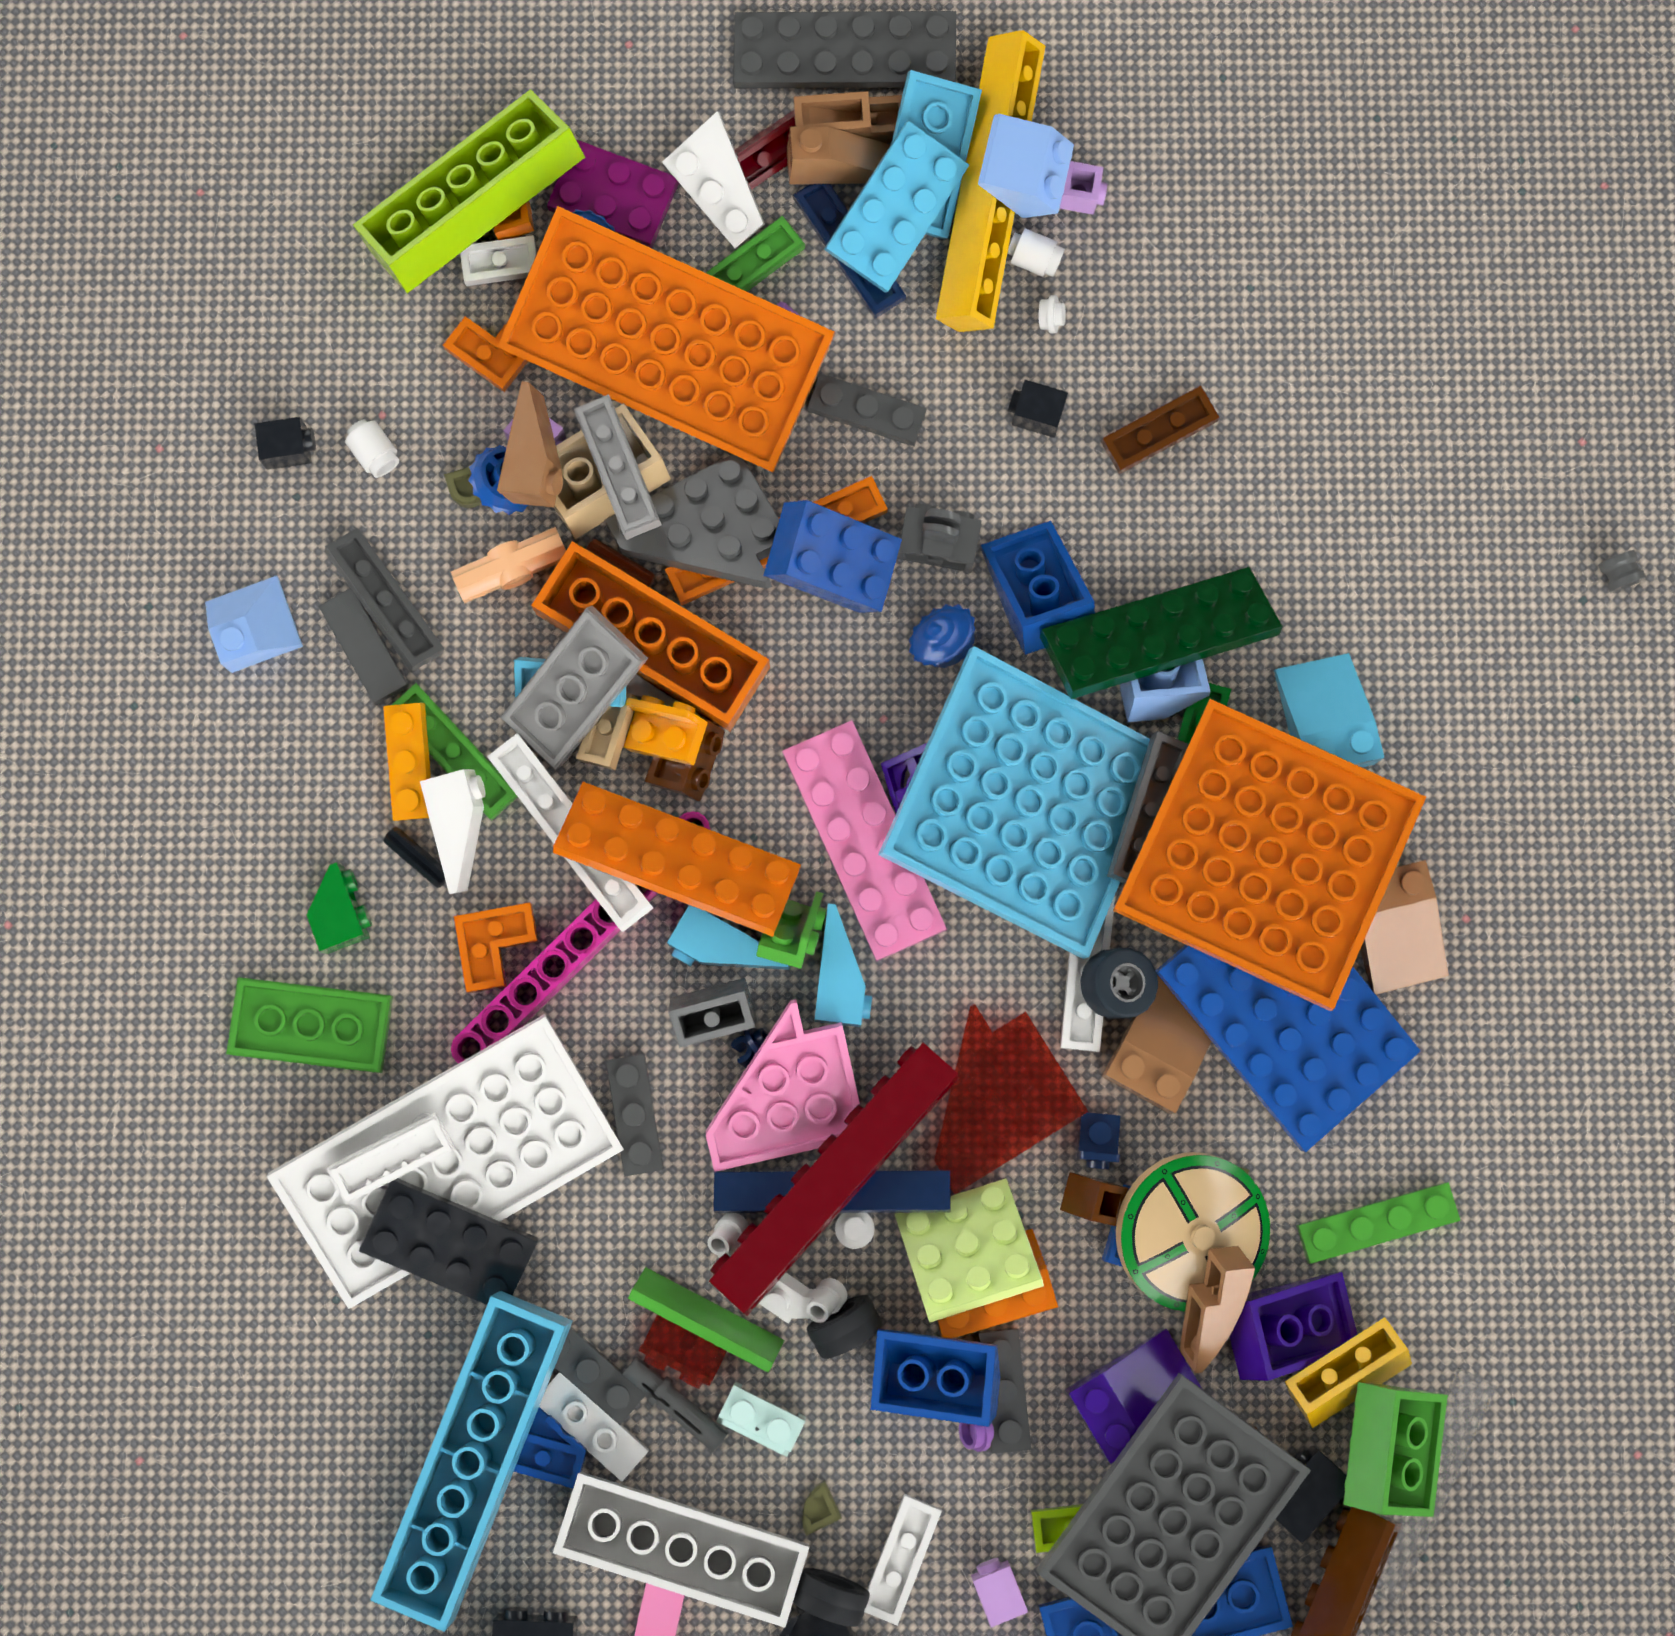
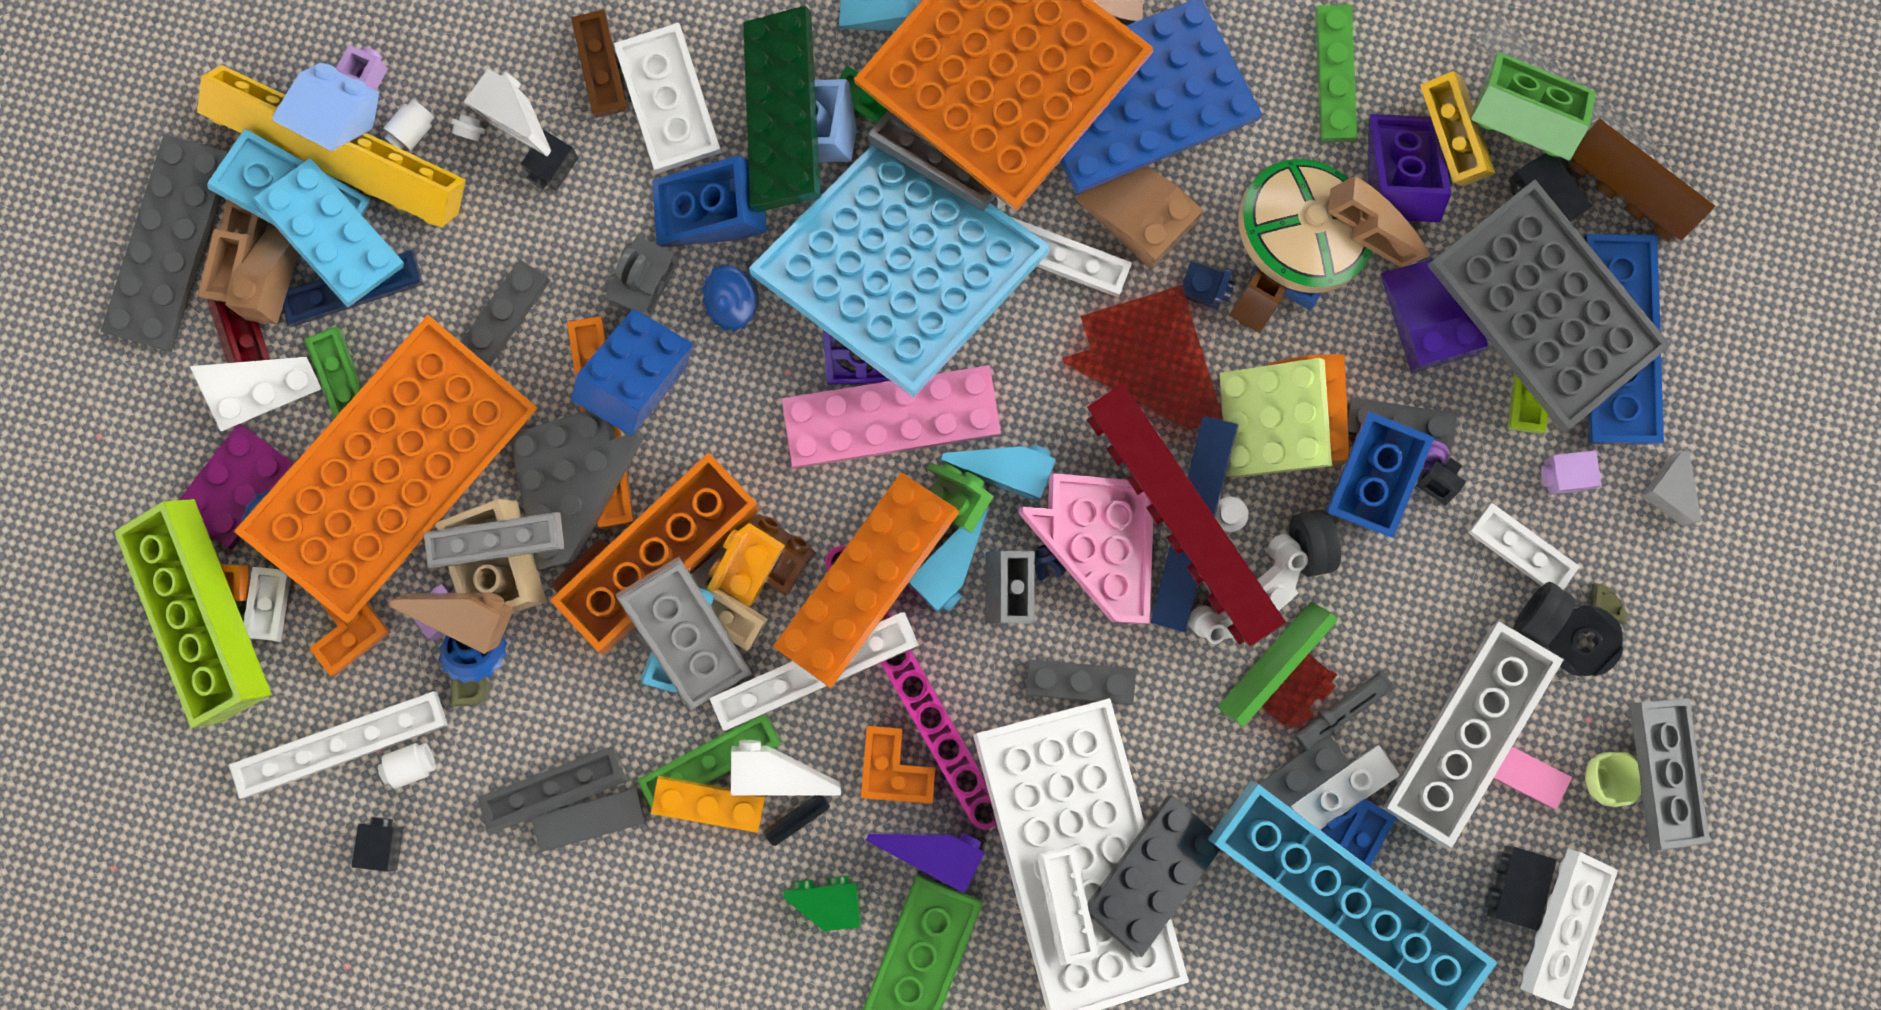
camera: 70 degrees left, 0 degrees up
(252, 625) = (538, 918): light blue slope -> none
(376, 374) = (338, 745): none -> white plate
(412, 1010) = (937, 854): none -> dark purple slope
(509, 565) = (553, 666): light nougat piece -> none
(761, 1420) = (1376, 638): light aqua window -> none
(819, 1509) = (1463, 609): olive tile -> none
(951, 1451) = (1442, 481): none -> black tile
(1081, 350) = (508, 109): none -> white slope
(1133, 986) = (1078, 227): black wheel -> none
(1142, 511) = (667, 98): none -> white plate

